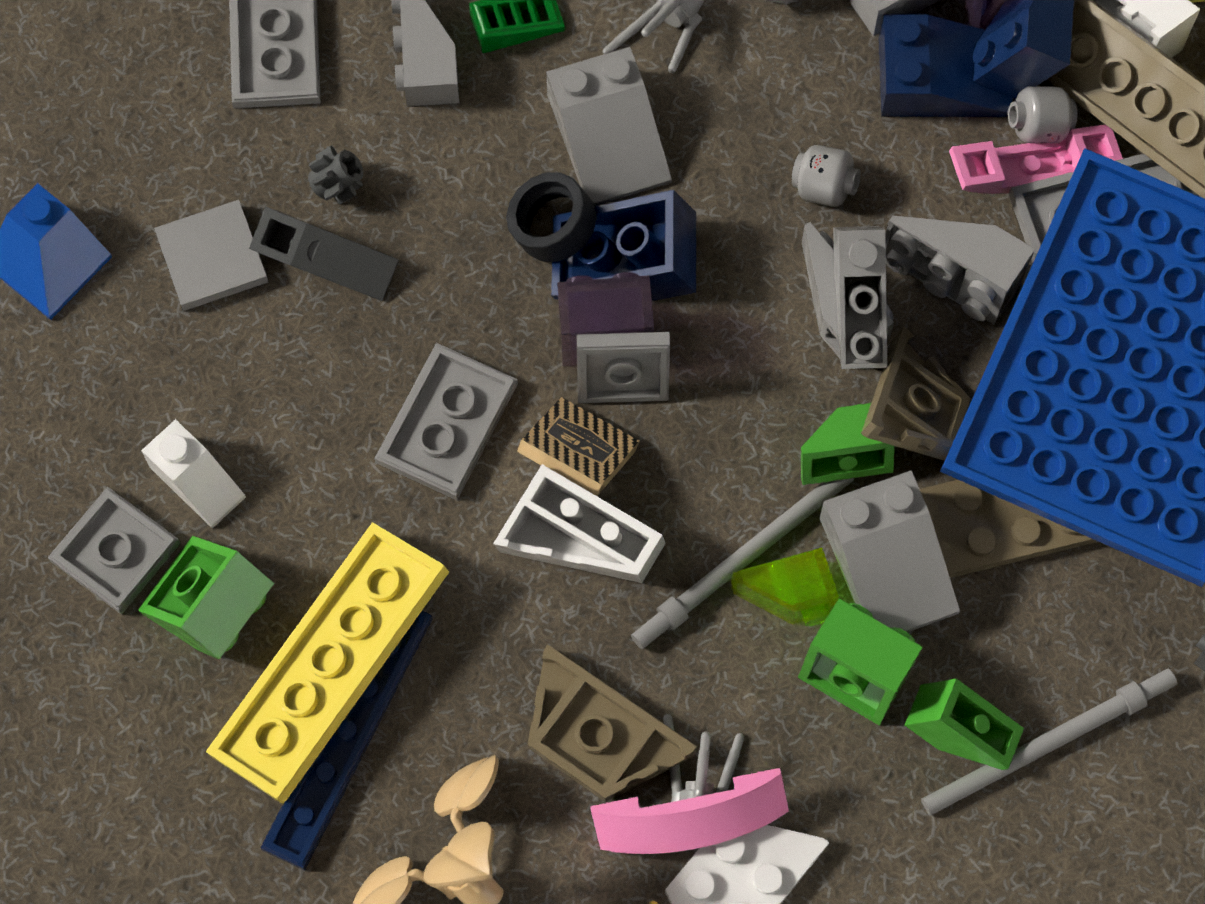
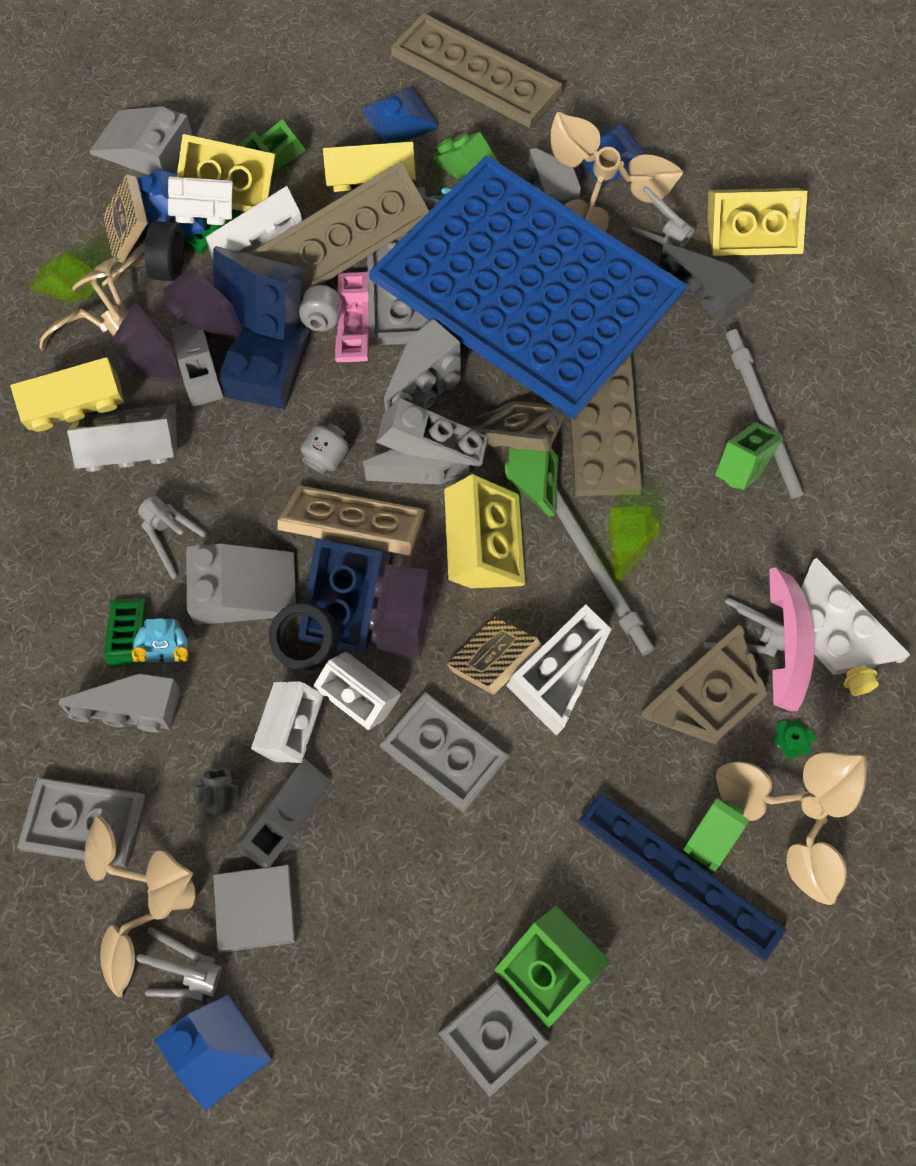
camera: 75 degrees left, 5 degrees down
(121, 219) = (200, 976): none -> light grey plant
(191, 140) = (168, 890): none -> tan plant
(193, 473) = (446, 956): white slope -> none
(327, 662) = (630, 877): light yellow plate -> none
(397, 756) = (716, 834): none -> bright green slope
(435, 227) = (287, 722): none -> white brick
(493, 295) = (357, 690): none -> white brick
(507, 56) = (160, 640): none -> medium azure piece
(567, 862) = (790, 746): none -> green plant
(623, 367) = (442, 608): light grey tile -> none
(727, 234) = (352, 520): none -> tan tile
(749, 402) = (483, 534): none -> light yellow slope
(859, 660) = (699, 501): bright green slope -> none
(890, 553) = (625, 467): light grey slope -> none

